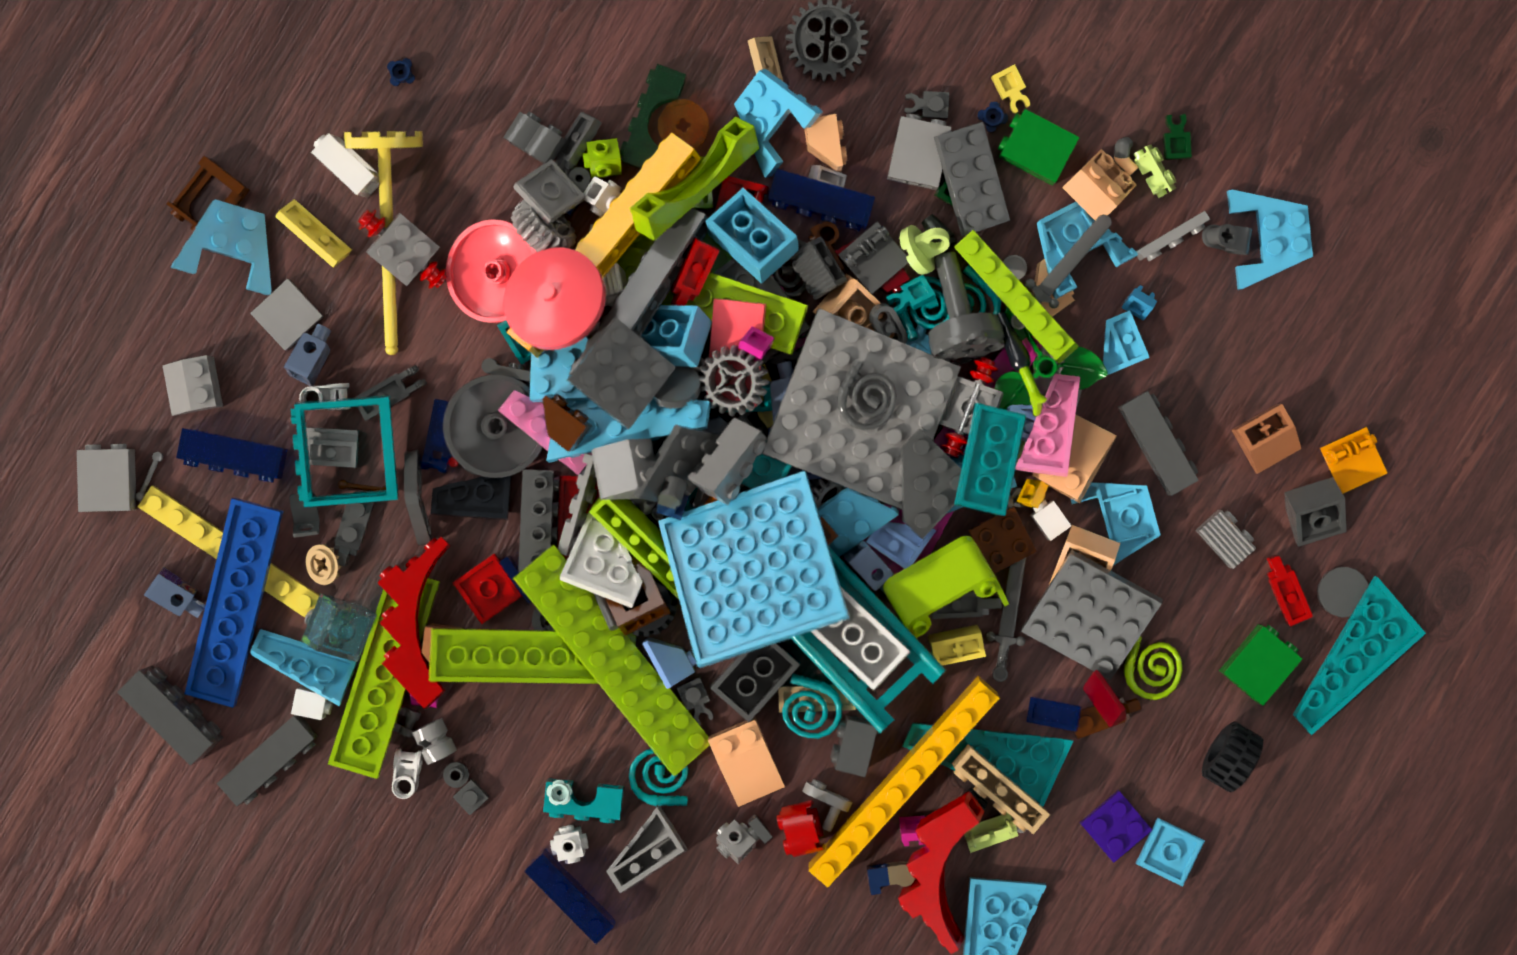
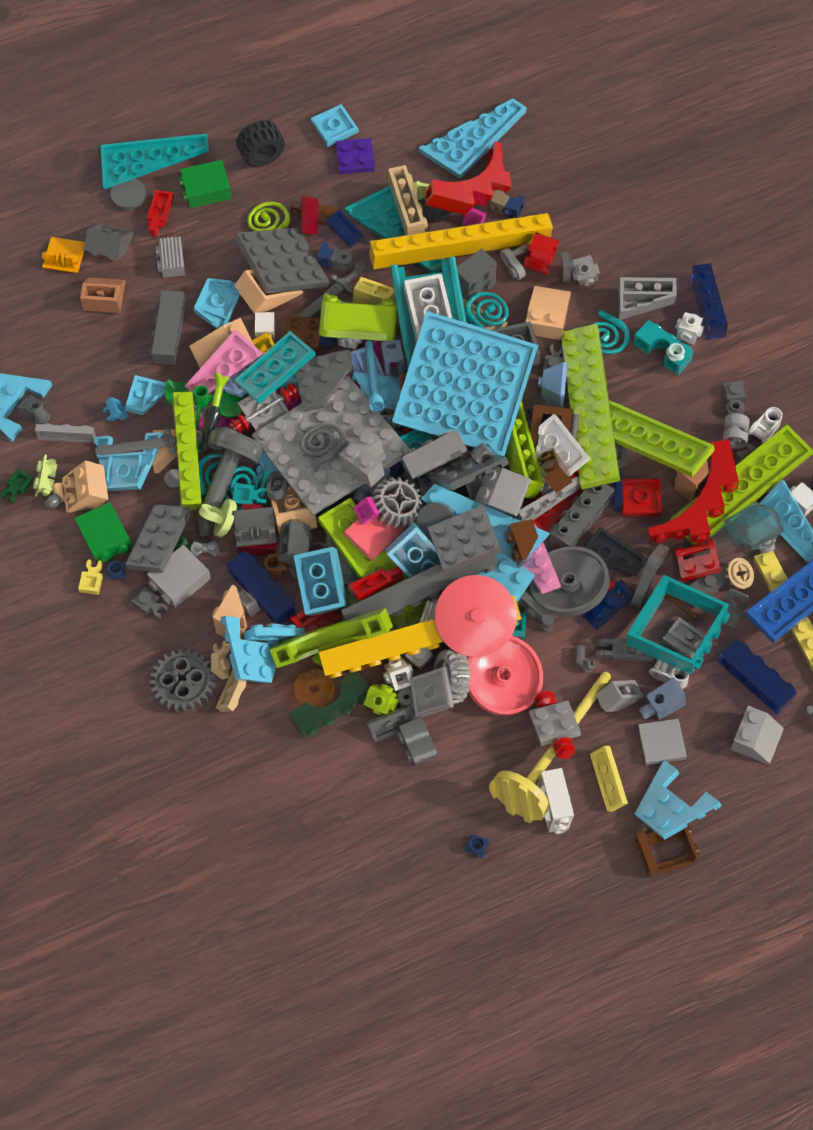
camera: 140 degrees left, 25 degrees down
(360, 334) = (619, 695): none -> light grey slope
(371, 543) = (700, 565): none -> red plate
(426, 349) = (582, 662): none -> dark grey arm
(589, 537) = (554, 470): none -> reddish brown slope
(763, 148) = (272, 632): none -> medium azure plate
(801, 83) = (219, 663): none -> tan plate
(807, 400) = (361, 458): none -> light grey brick
(842, 488) = (376, 401): none -> medium azure piece
(909, 212) = (212, 547): none -> dark grey piece
(1037, 664) = (334, 258): none -> leg

